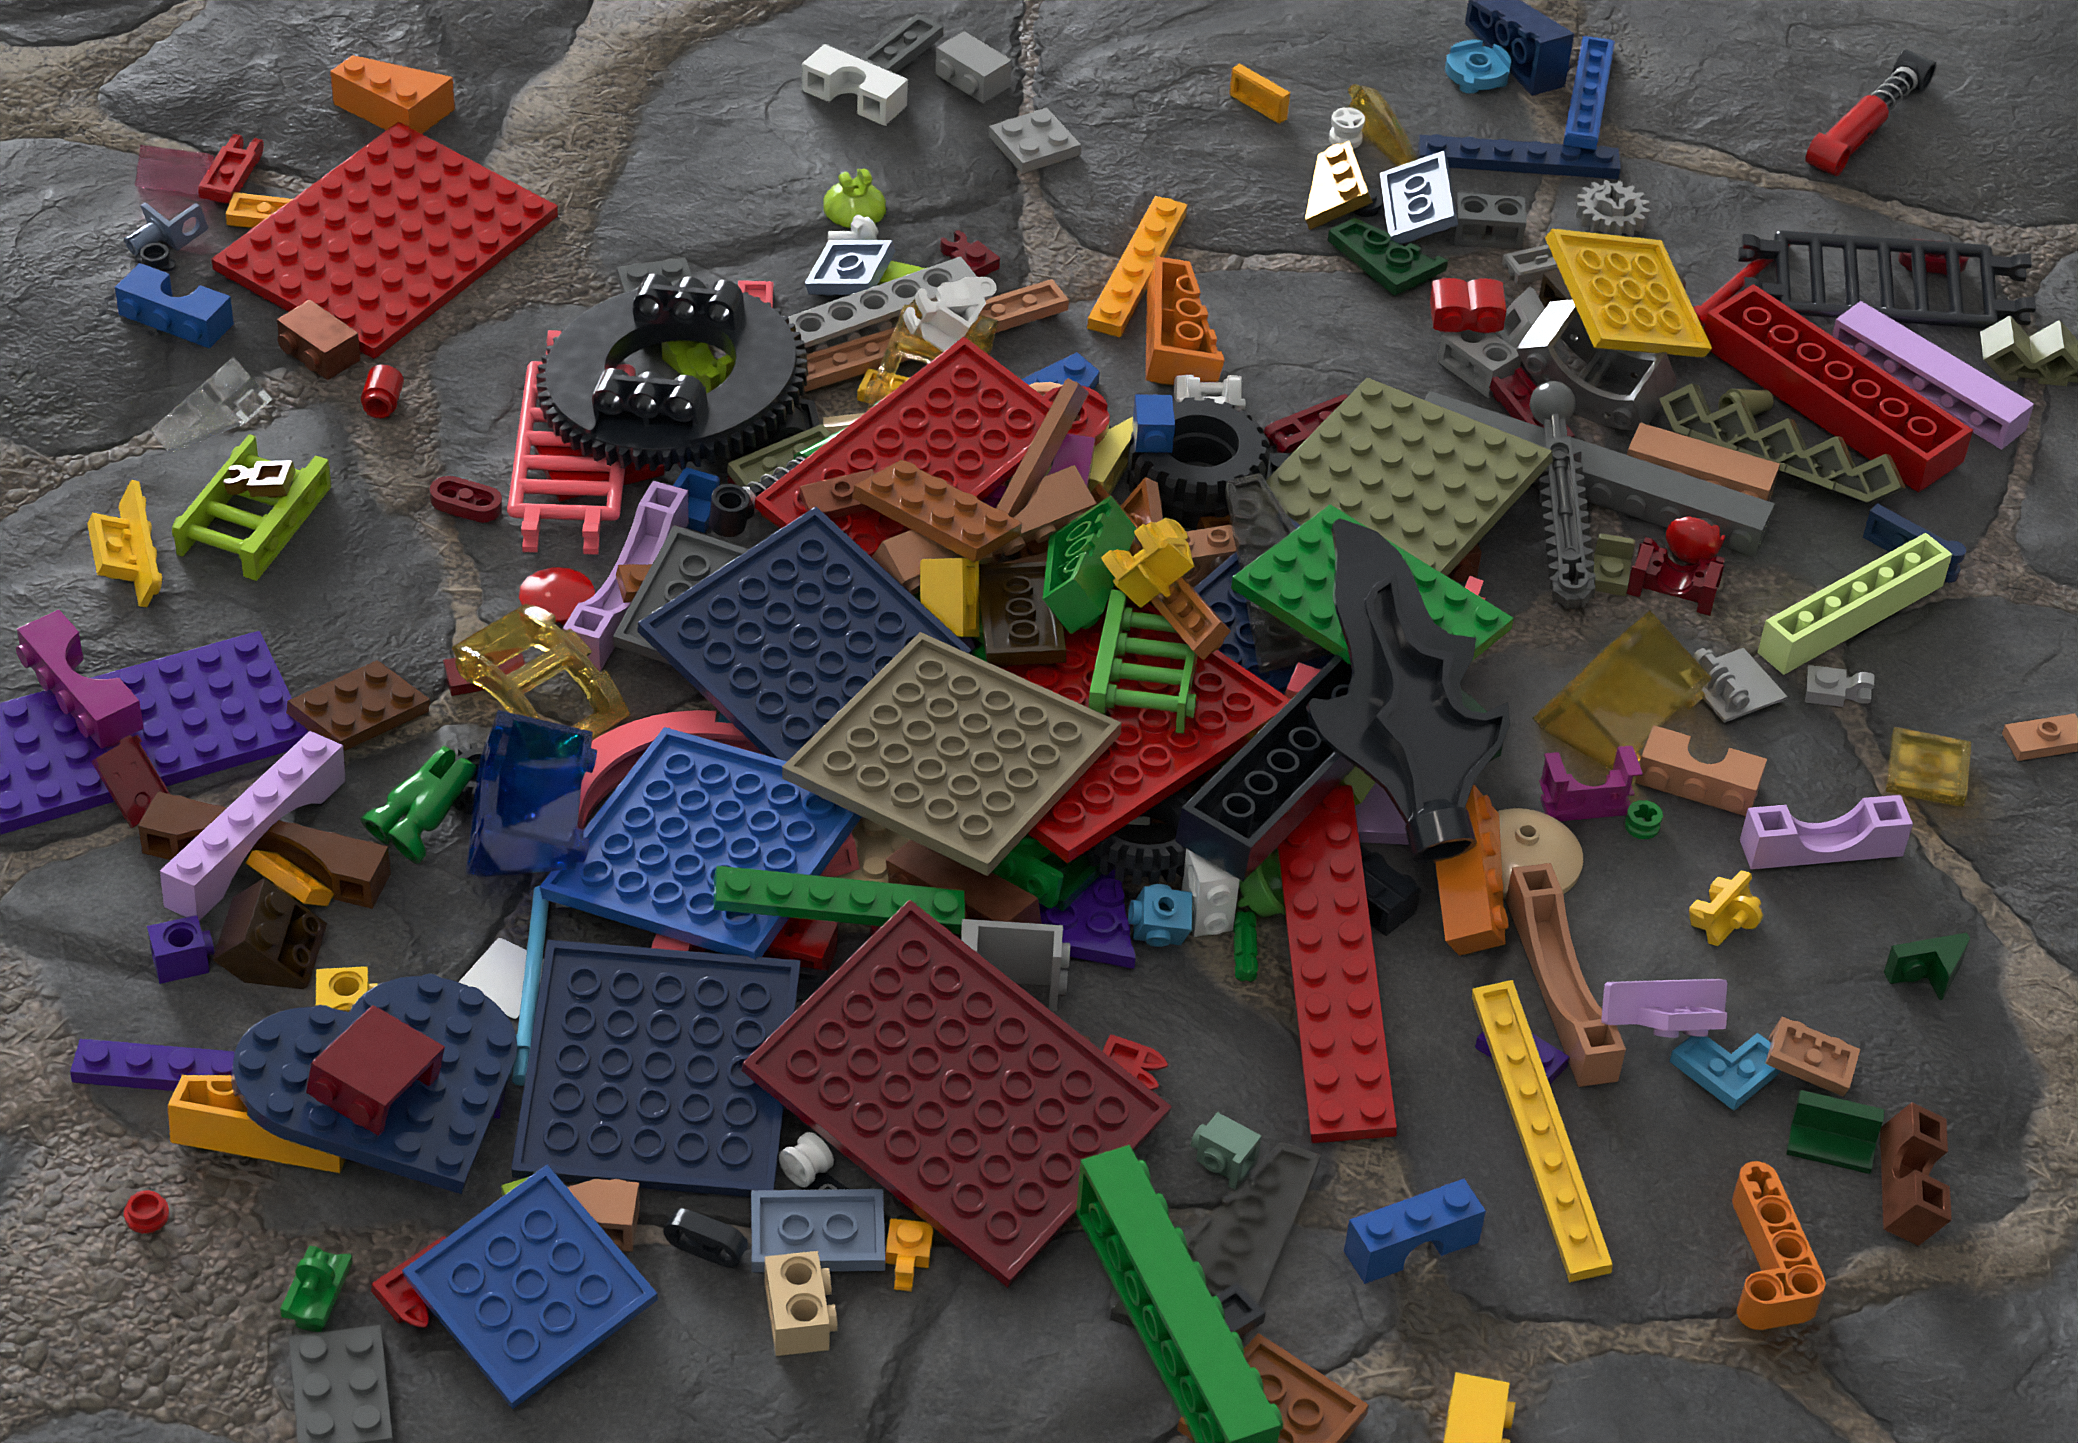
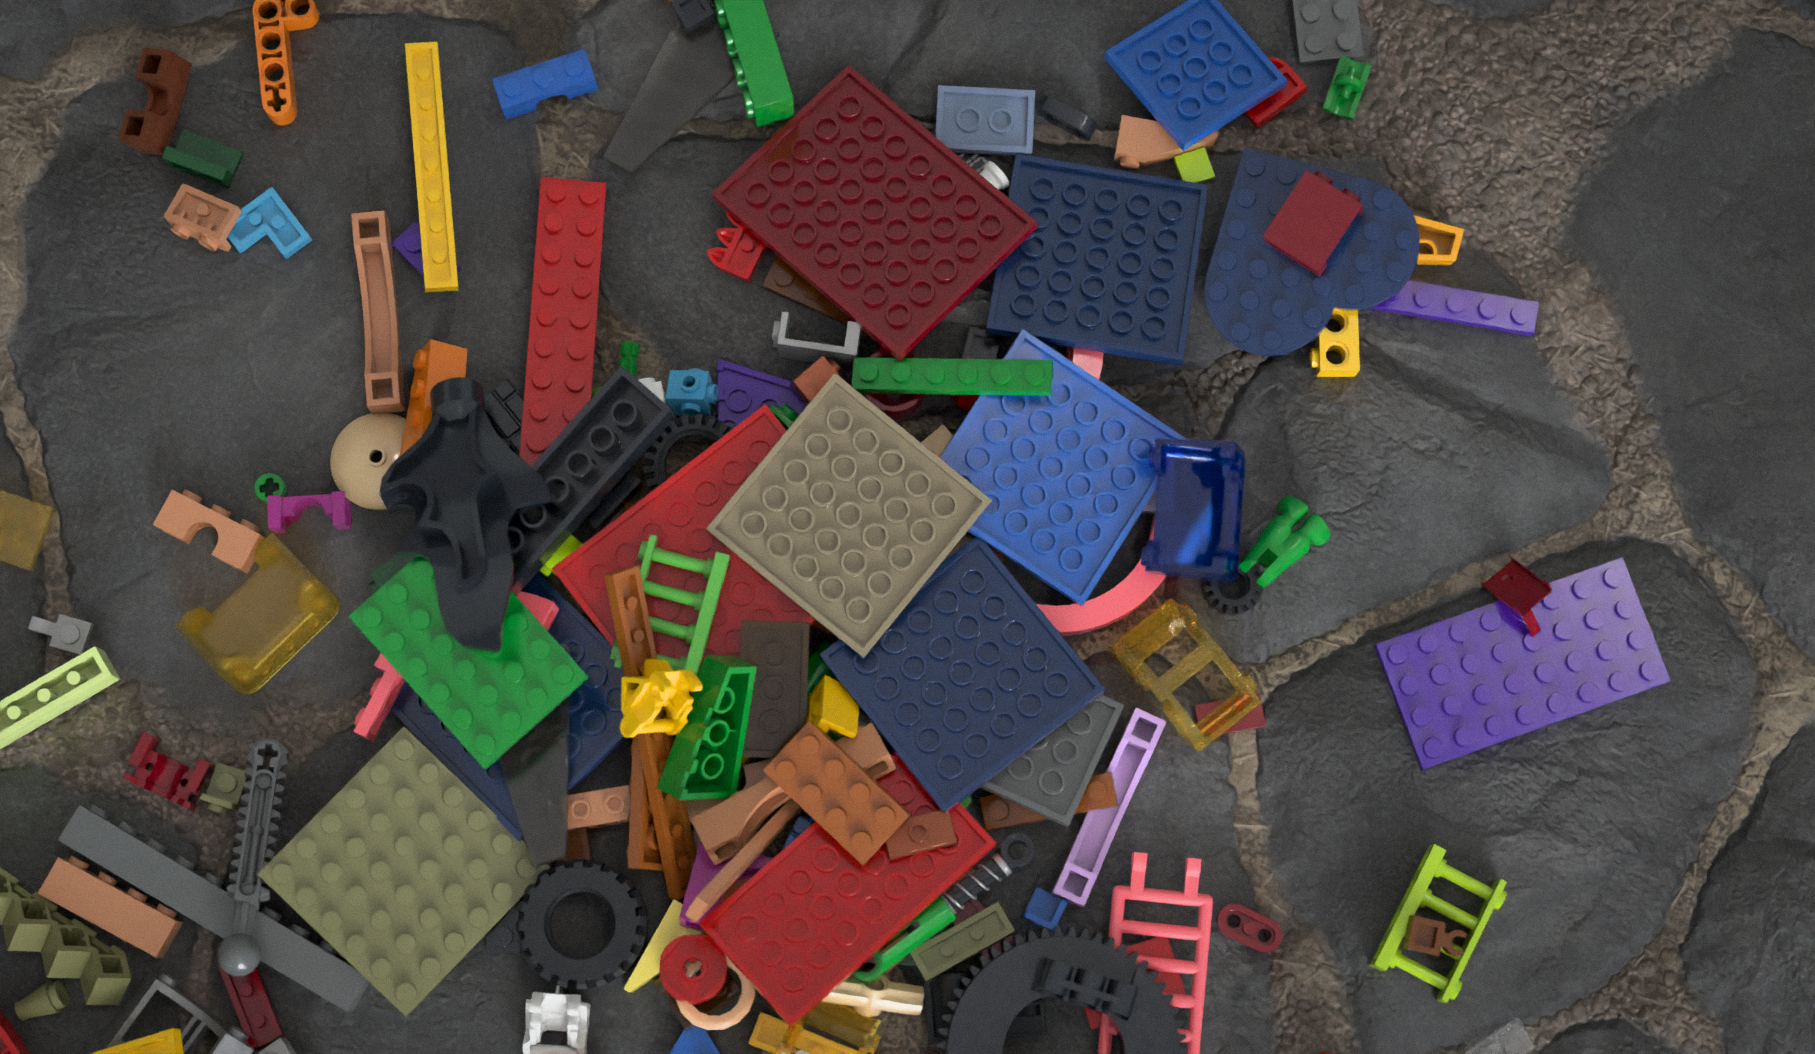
camera: 175 degrees left, 35 degrees up
(100, 706) = (1596, 726): magenta arch -> none
(125, 547) = (1548, 879): yellow bracket -> none
(146, 1212) = (1471, 172): red plate -> none
(180, 949) = (1479, 410): dark purple brick -> none
(205, 867) = (1416, 528): lavender arch -> none
(269, 938) = (1396, 419): dark brown slope -> none
(289, 878) = (1384, 482): light orange plate -> none
(345, 865) = (1340, 490): reddish brown arch -> none
(358, 705) = (1336, 670): reddish brown plate -> none
(500, 975) = (1210, 385): white sticker -> none
(530, 985) = (1197, 313): medium azure bar -> none
(556, 591) = (1168, 805): red dish -> none
(794, 1303) = (1009, 56): tan brick -> none
(908, 1247) = (920, 104): light orange plate -> none
(1153, 423) = (622, 927): blue brick -> none
(1227, 1148) = (673, 169): sand green brick -> none
(1300, 425) = (462, 991): dark red plate -> none
(1667, 1005) = (302, 251): lavender bracket -> none
(1693, 539) = (142, 808): red hair -> none
(1729, 909) = (217, 393): yellow hips -> none
(1736, 684) = (151, 640): light grey hinge -> none
(1869, 831) = (149, 447): lavender arch -> none
(1929, 958) = (68, 316): dark green slope -> none

